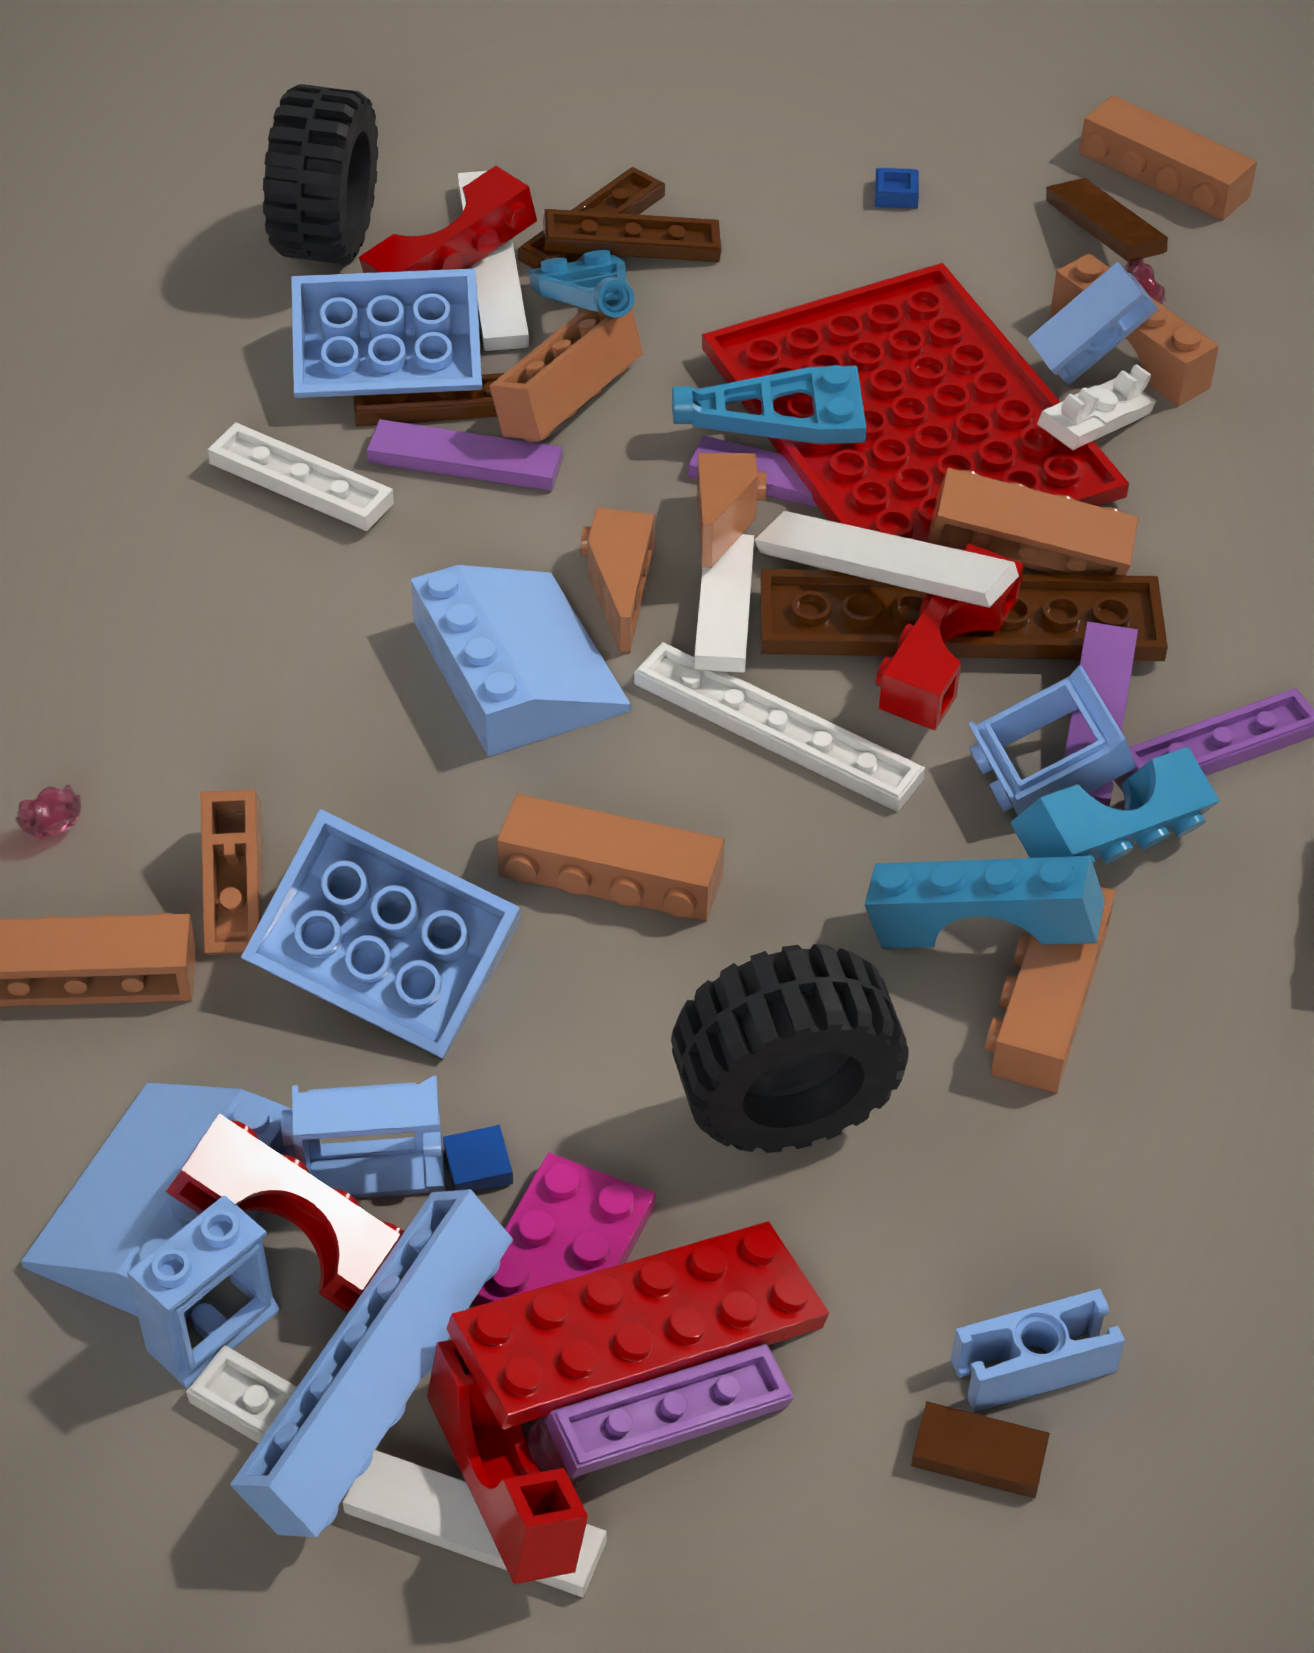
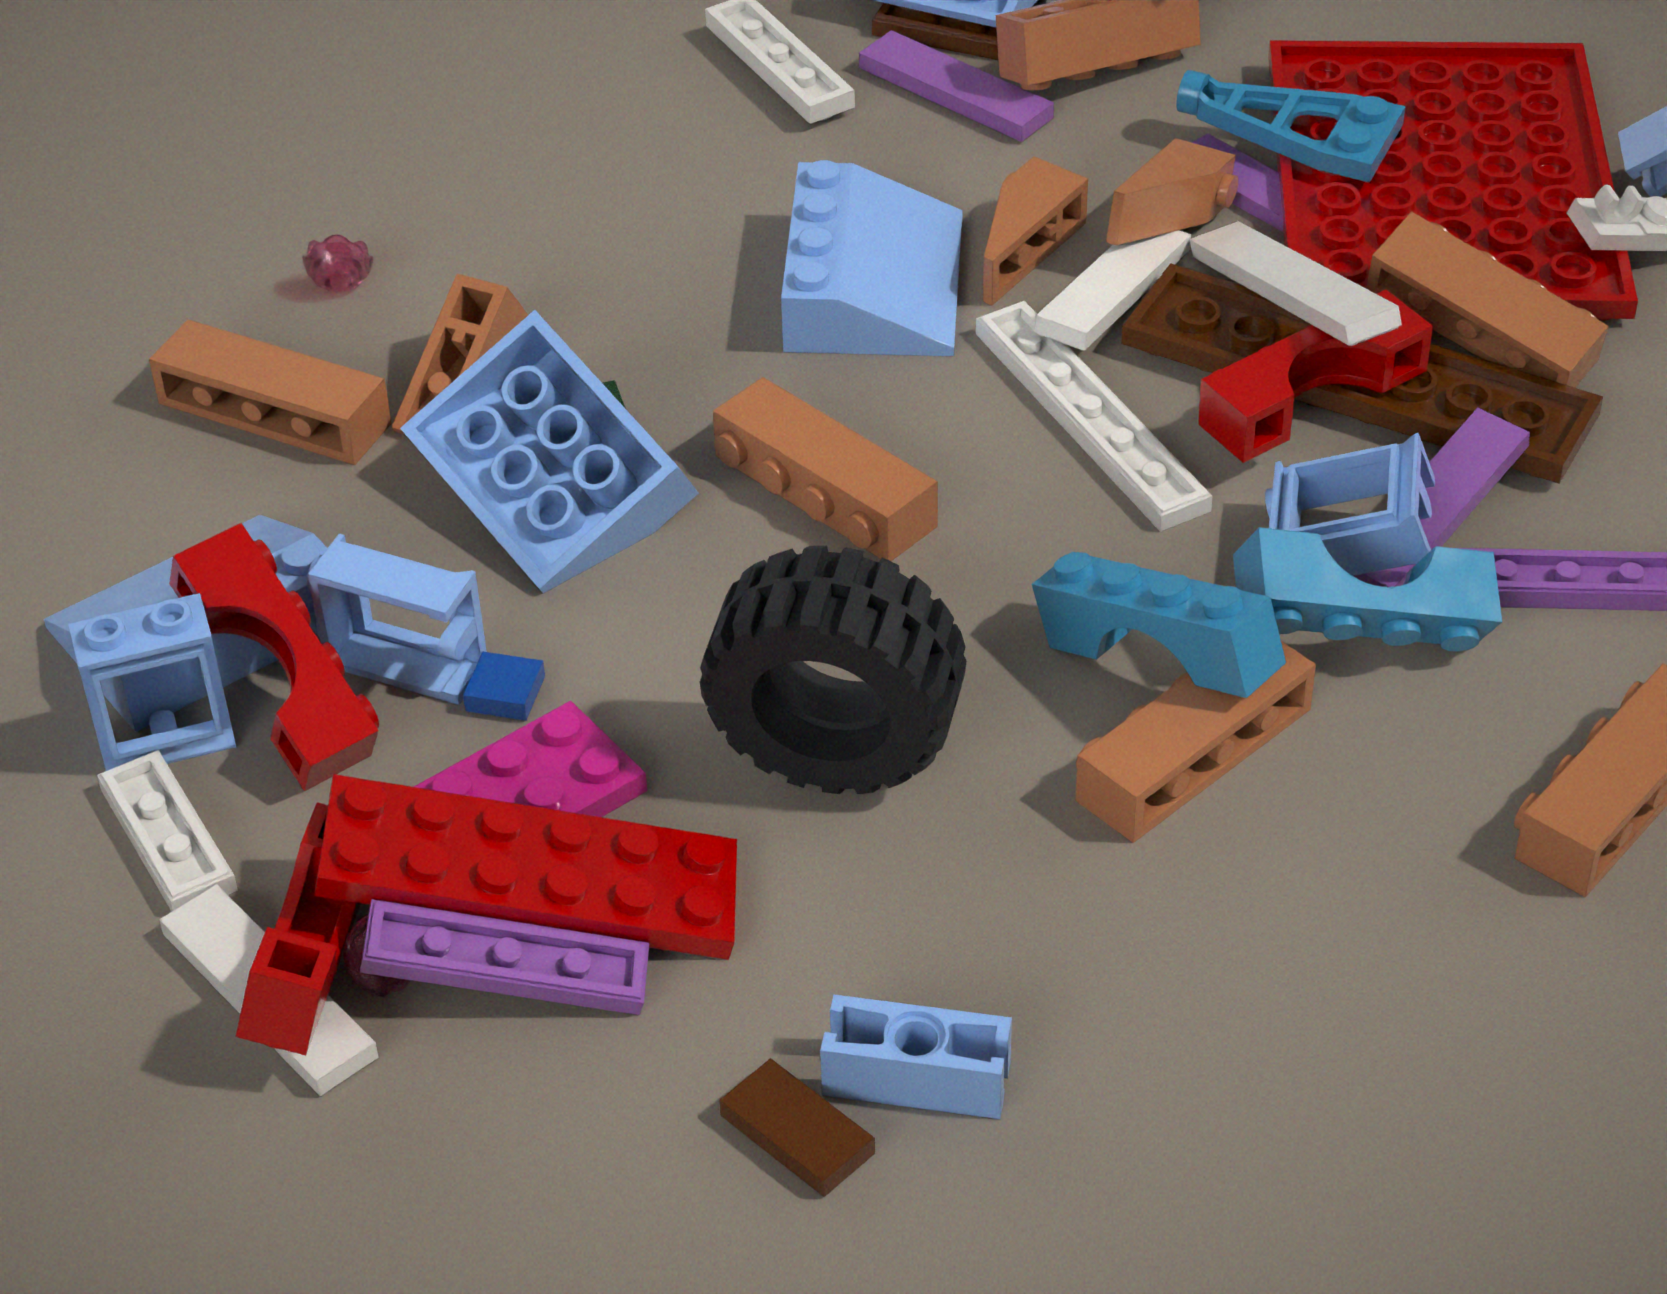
camera: 30 degrees right, 5 degrees down
(371, 1365) = (251, 803): light blue brick -> none

